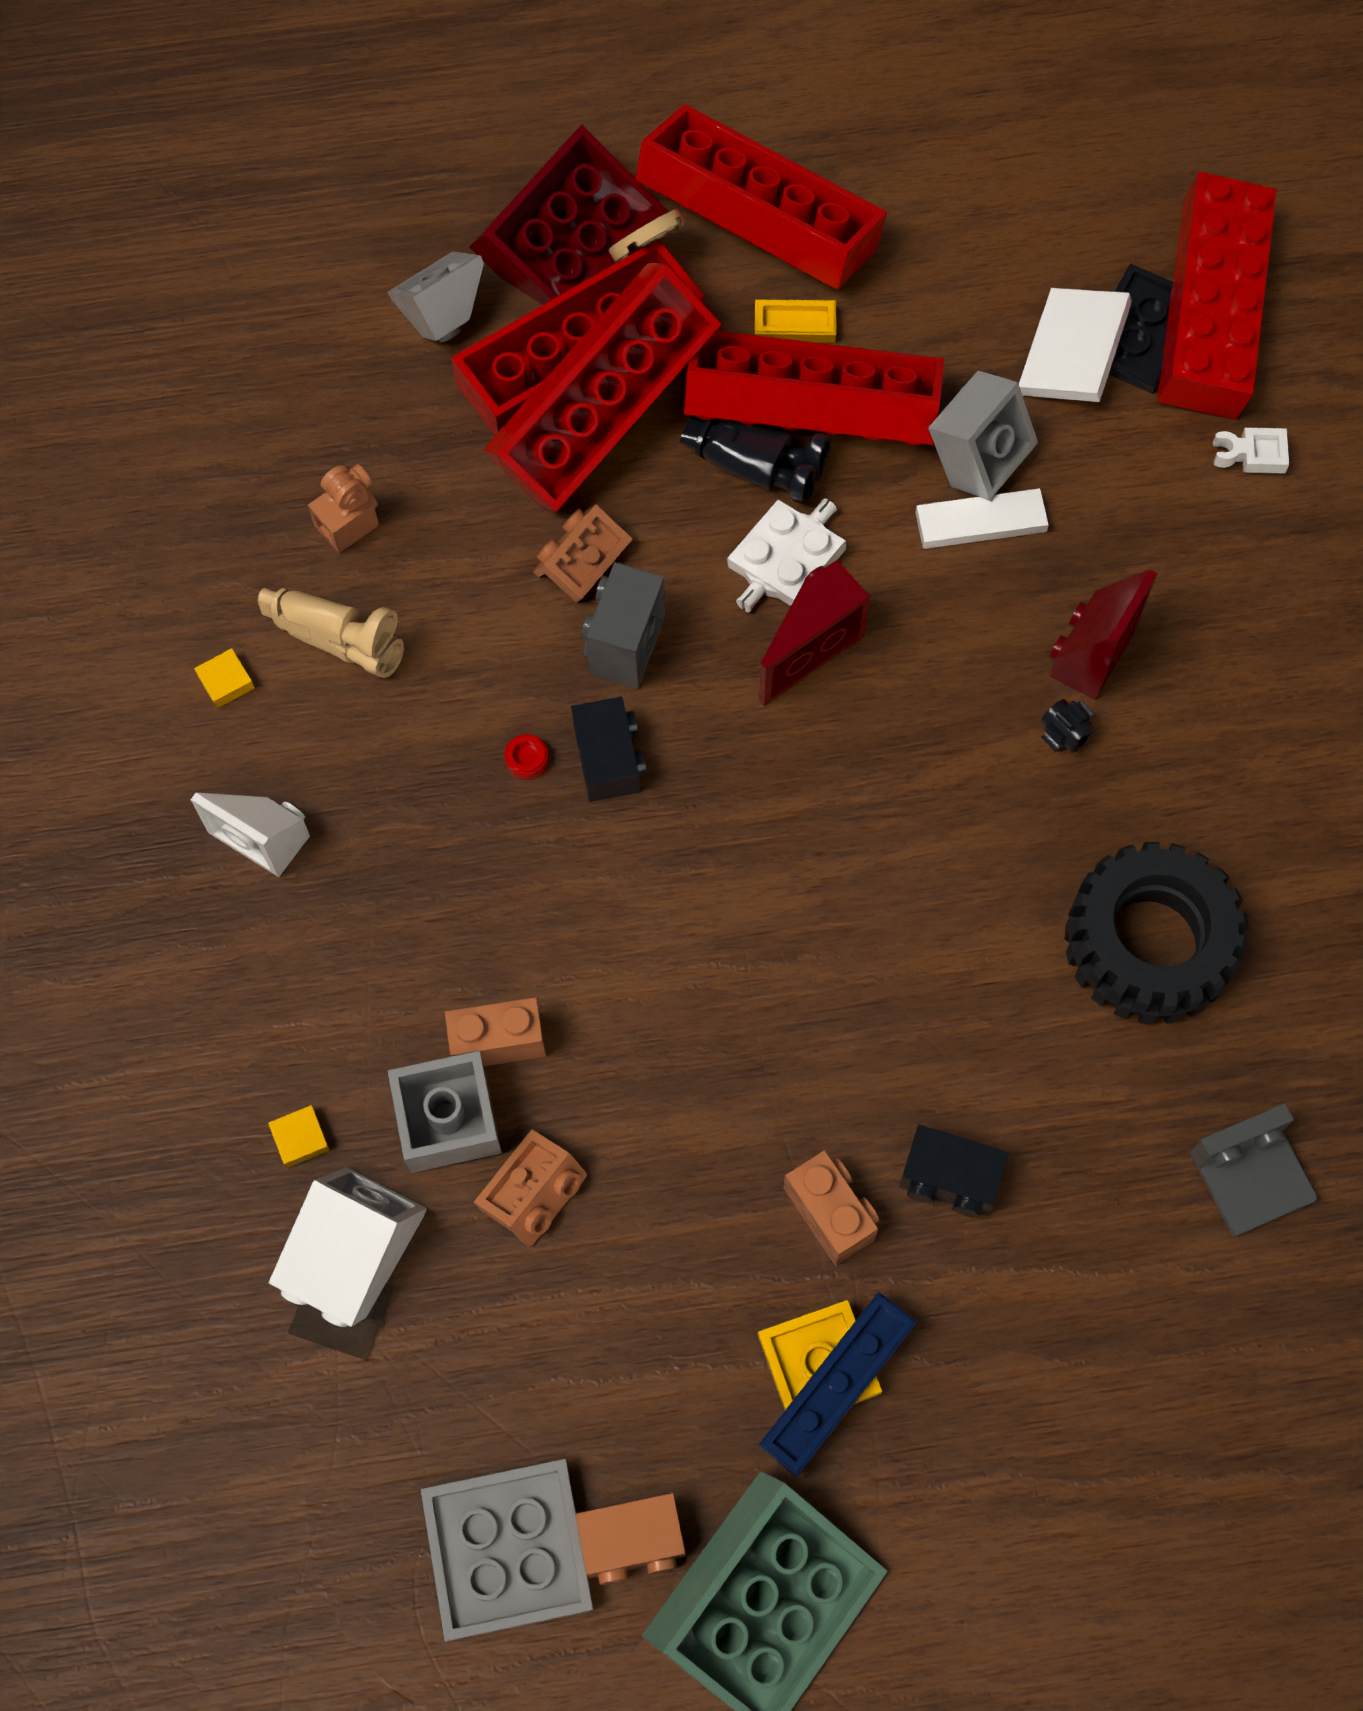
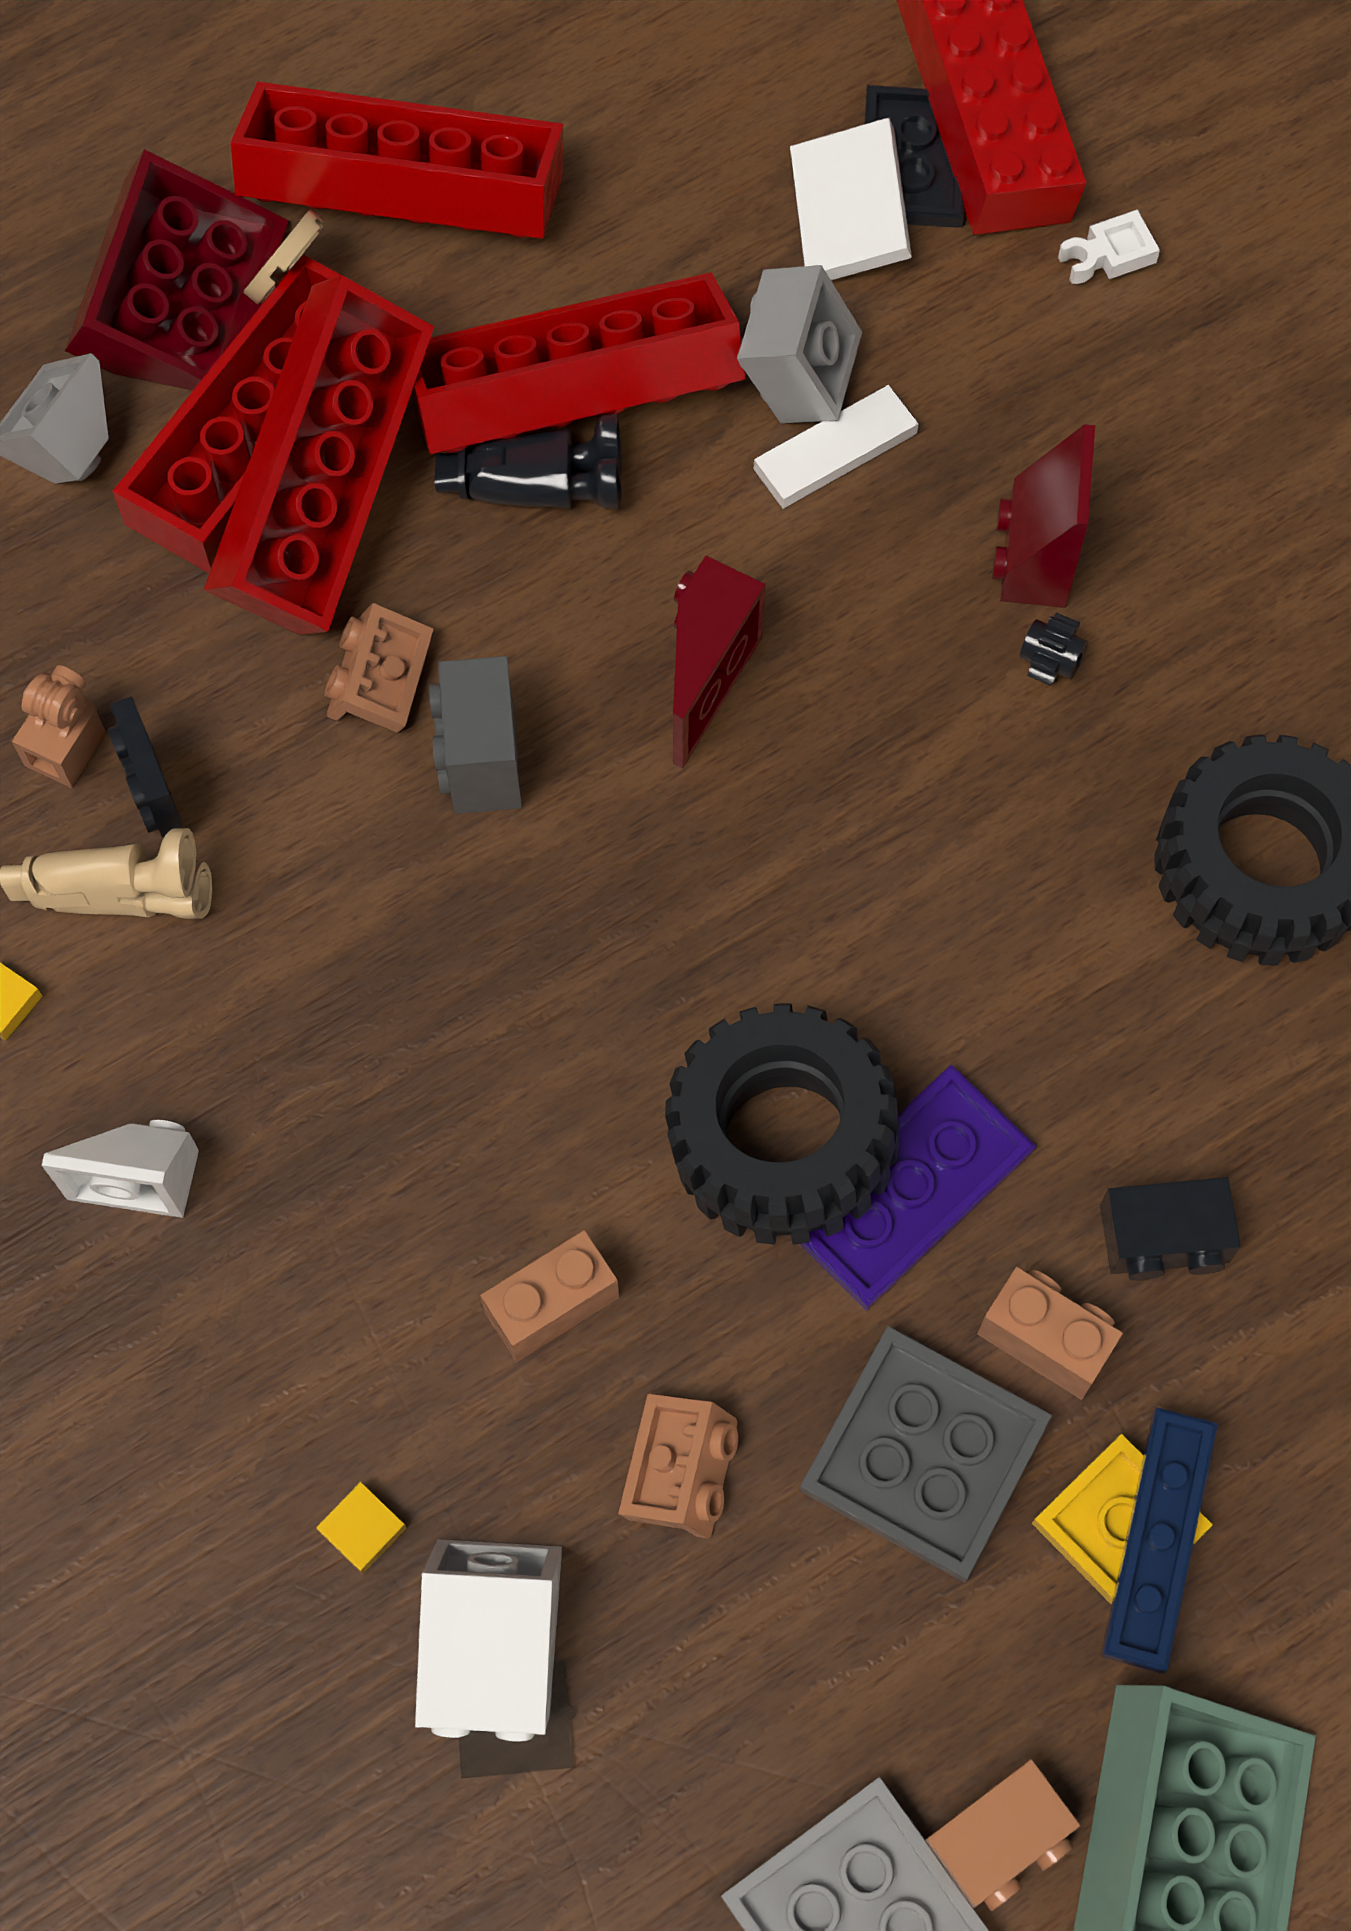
camera: 25 degrees left, 0 degrees up
(387, 567) = (142, 769): none -> black plate
(444, 1112) = (534, 1418): light grey brick -> none
(526, 757) = (425, 944): red tile -> none
(607, 749) = (522, 894): black brick -> none
(697, 930) = (769, 1054): none -> black tyre
(704, 1254) = (925, 1454): none -> dark grey plate
(783, 1065) = (947, 1163): none -> dark purple tile
(784, 551) = (626, 576): white plate -> none
(796, 320) = (506, 293): yellow tile -> none

